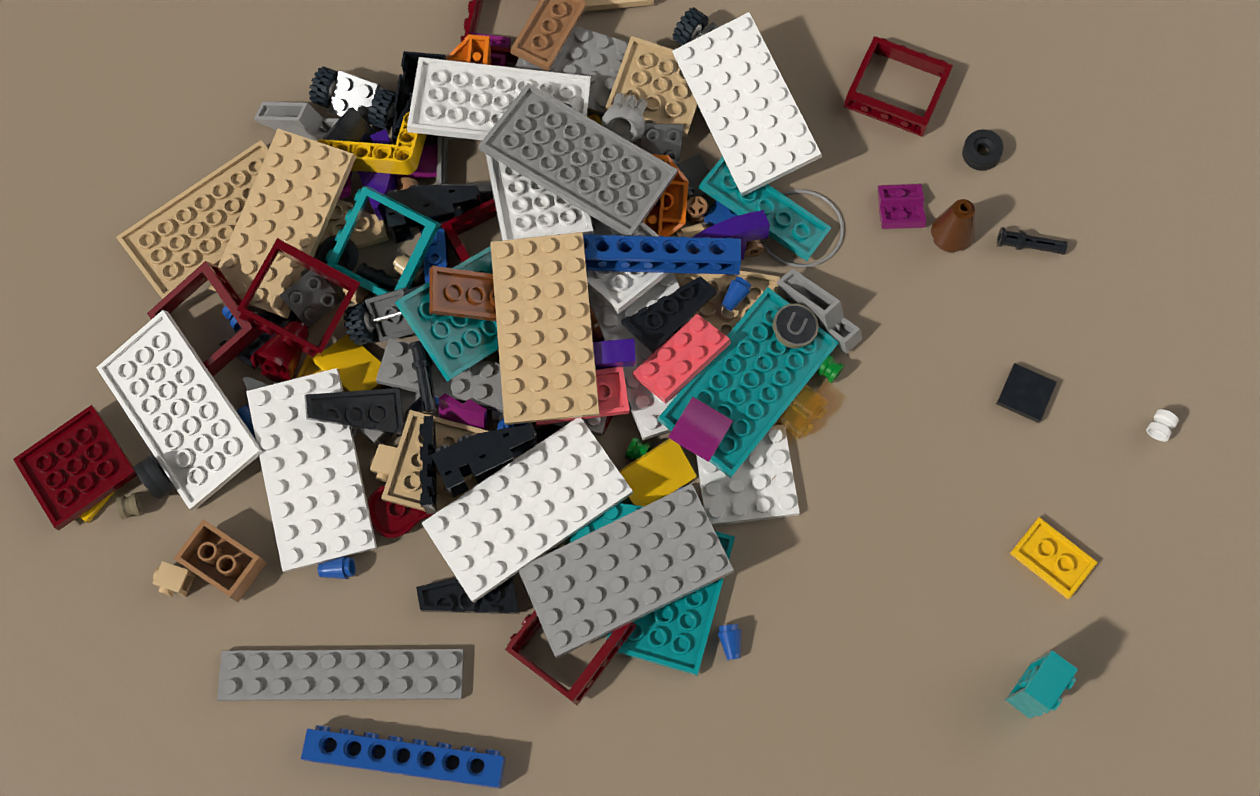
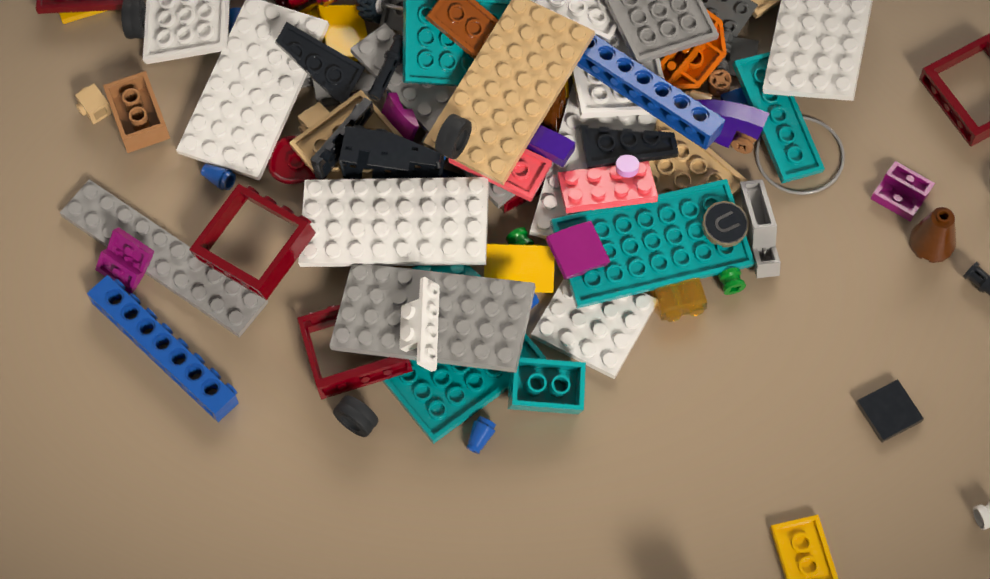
camera: 35 degrees right, 5 degrees down
(129, 505) = (101, 29): dark tan wheel -> none
(310, 702) = (125, 259): none -> magenta slope
(452, 598) = (322, 280): black wing -> none
(461, 609) = (280, 264): none -> dark red window
(533, 402) = (453, 136): none -> black tyre
(619, 700) = (355, 416): none -> black tyre
(626, 588) = (420, 325): none -> white bracket
(687, 330) = (627, 166): none -> tile
(736, 293) = (697, 168): blue cone -> none
(760, 562) = (547, 386): none -> teal brick

